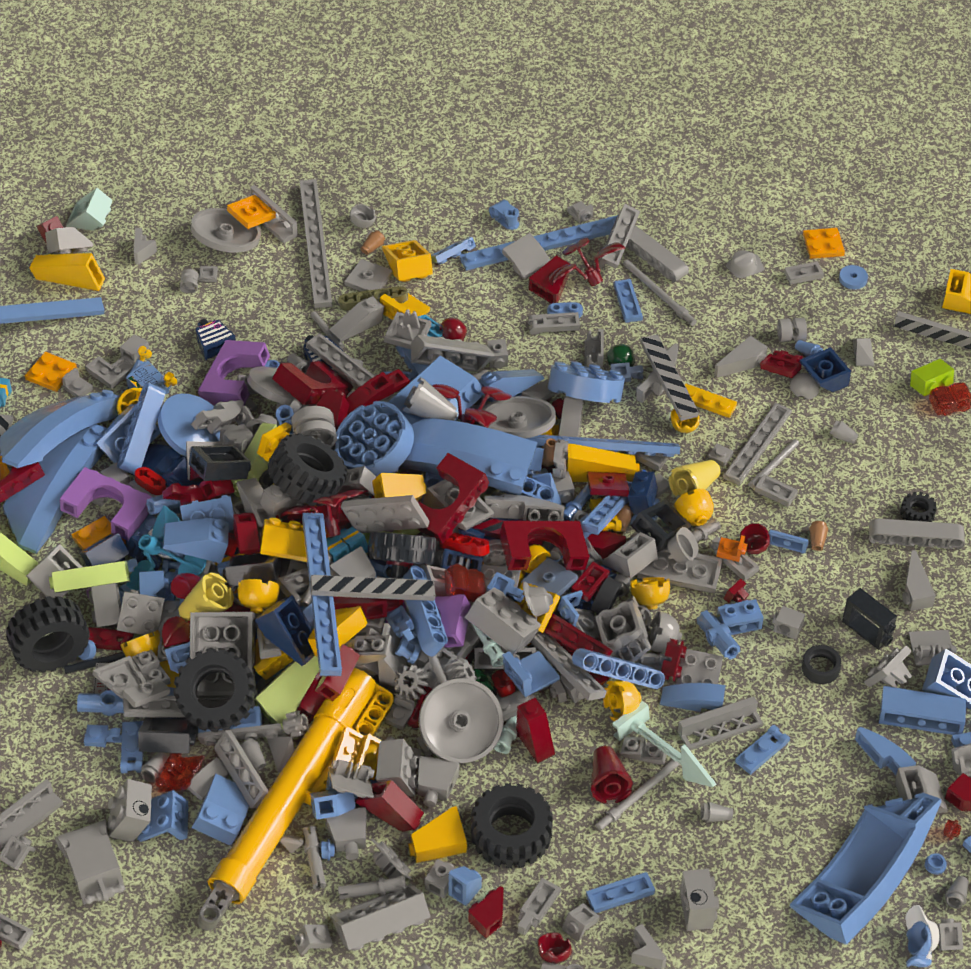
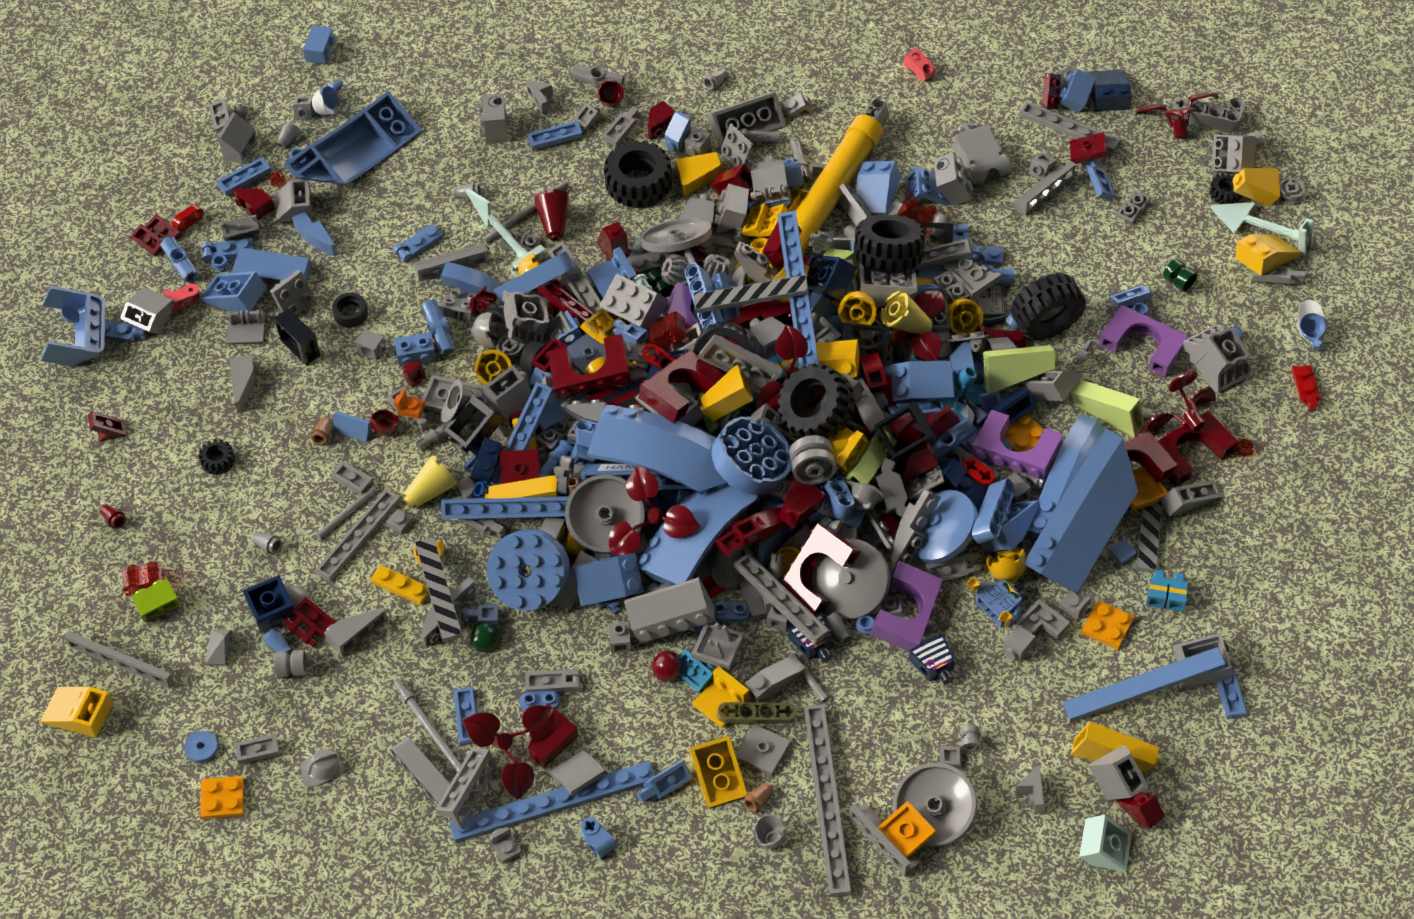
camera: 175 degrees left, 5 degrees up
(146, 692) = (951, 254): light grey plate -> none
(428, 403) = (699, 497): light grey cone -> none
(537, 599) = (600, 307): light grey piece -> none
(594, 349) = (513, 643): light grey hinge -> none
(696, 507) = (439, 444): yellow cylinder -> none
(916, 533) = (230, 430): light grey beam -> none

